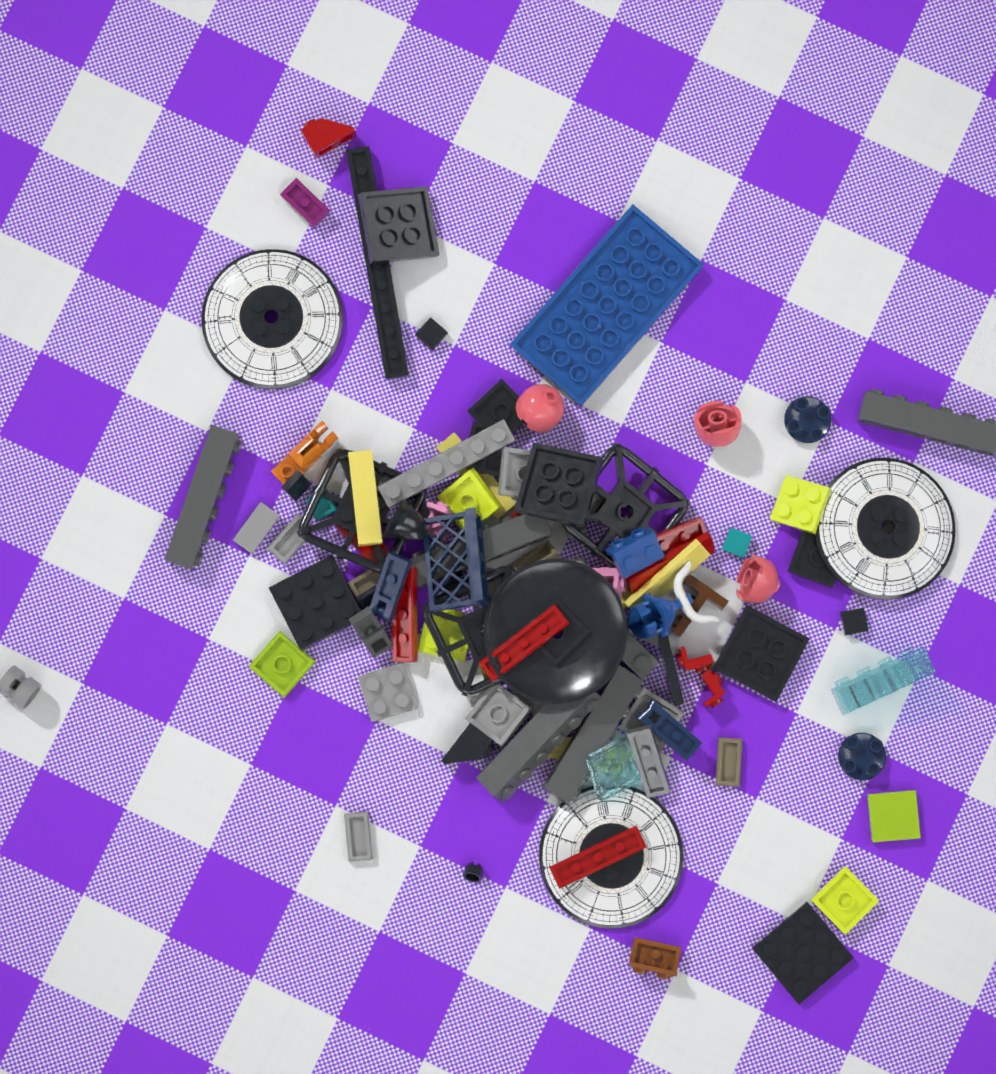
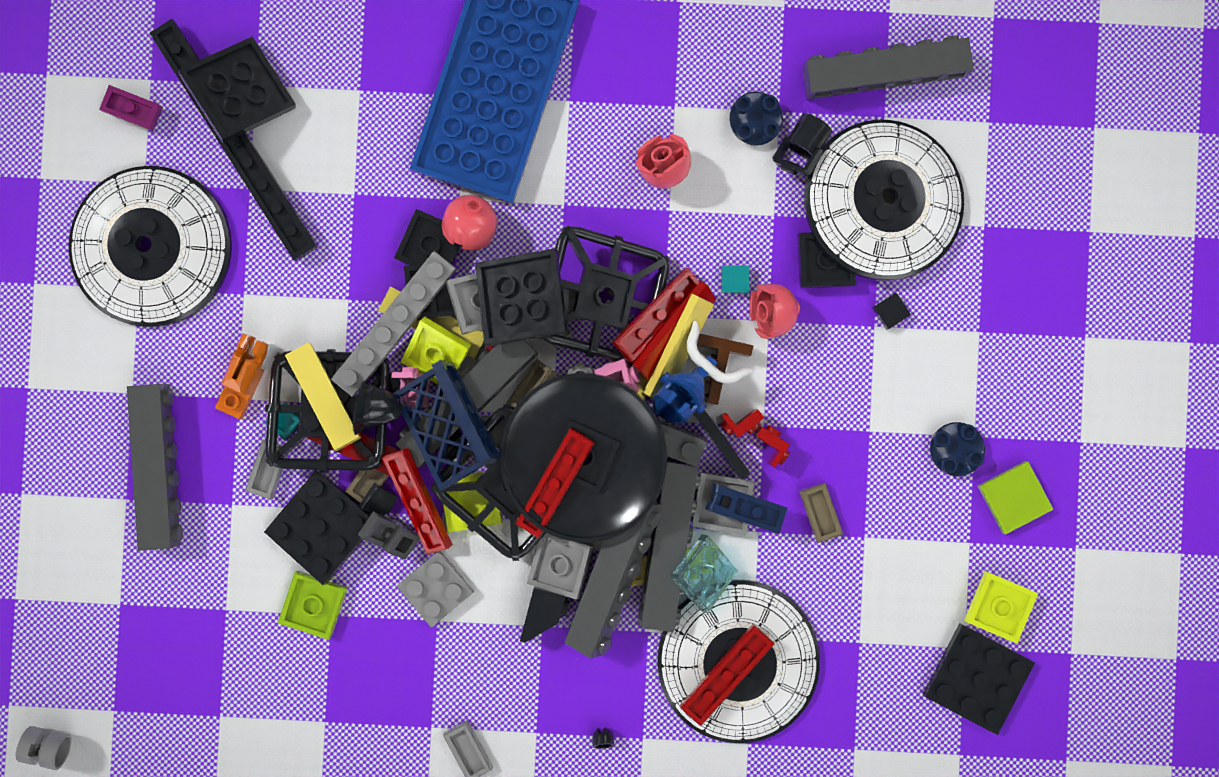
camera: 15 degrees left, 5 degrees up
(256, 528) = (225, 474): light grey tile -> none
(296, 485) = (247, 412): black tile -> none
(326, 135) = (123, 26): red slope -> none
(390, 586) = (388, 480): dark blue plate -> none
(431, 334) = (323, 192): black tile -> none
(635, 551) = (633, 335): blue bracket -> none
(648, 761) = (738, 549): plate -> none
(654, 957) = (828, 751): dark orange bracket -> none
(761, 653) = (808, 385): black plate -> none
(800, 504) = (786, 210): neon yellow plate -> none
(840, 453) = (806, 141): none -> black piece
(882, 680) = (949, 359): clear light blue wedge -> none

